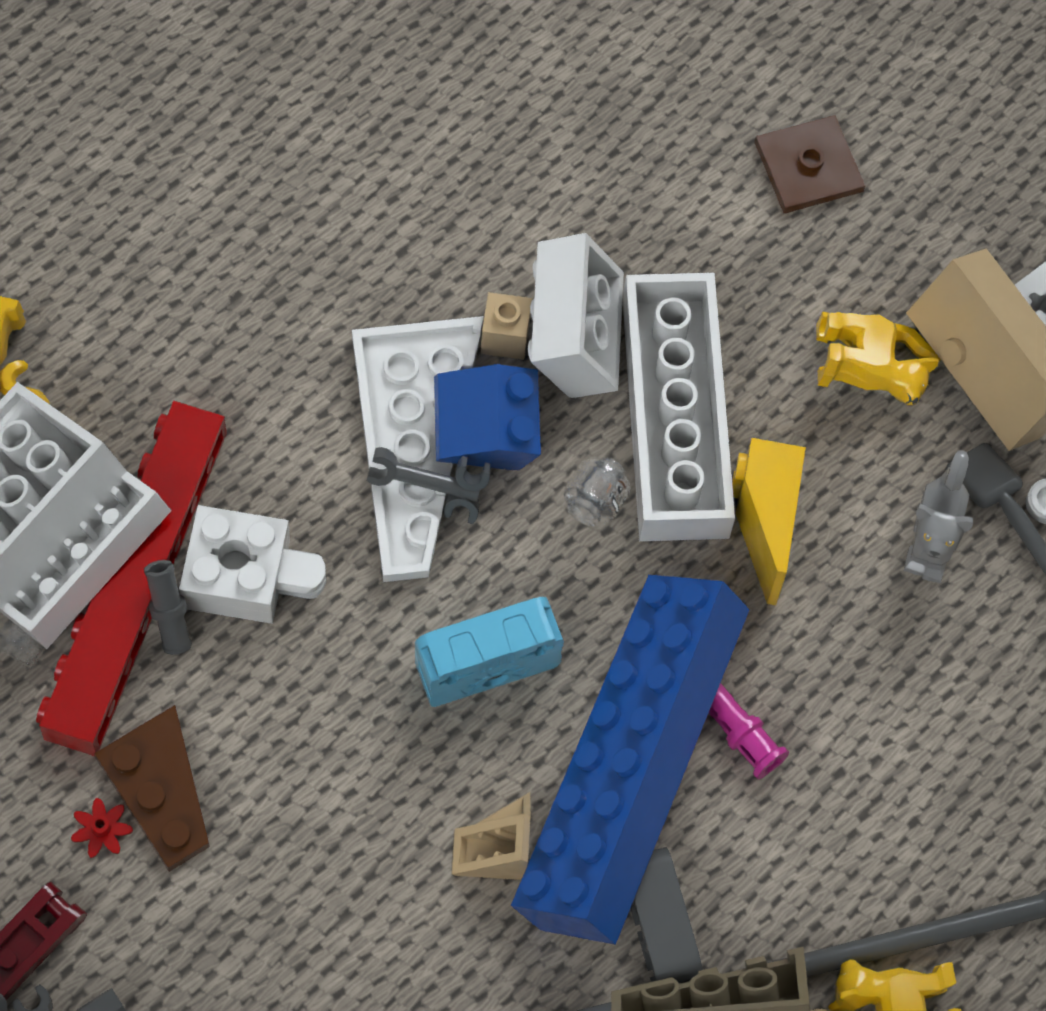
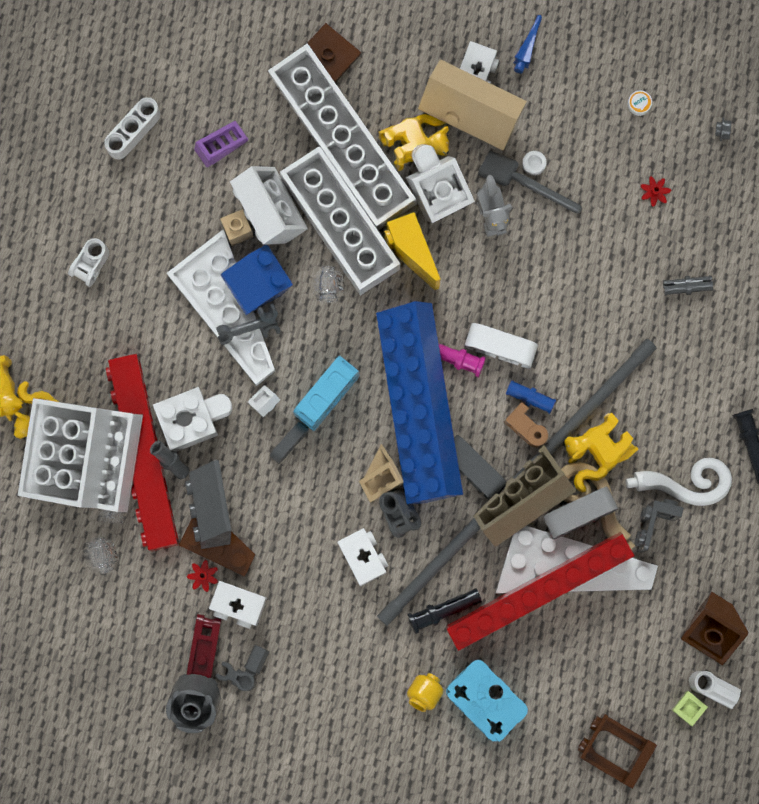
camera: 25 degrees left, 15 degrees up
(118, 878) = (252, 603): none -> white brick
(182, 715) = (209, 506): none -> dark grey slope
(240, 249) = (89, 263): none -> white piece
(378, 924) = (363, 571): none -> white brick
(379, 697) = (289, 442): none -> dark grey beam
(380, 610) = (264, 401): none -> white plate
(452, 83) = (134, 117): none -> white beam
(488, 914) = (399, 512): none -> dark grey piece
(546, 208) = (210, 159): none -> medium lavender slope
(759, 282) = (342, 136): none -> white brick
(788, 905) = (525, 428): none -> medium nougat leg
(827, 747) = (501, 344): none -> white beam
(827, 860) = (530, 396): none -> blue pin
(870, 438) = (438, 184): none -> white brick

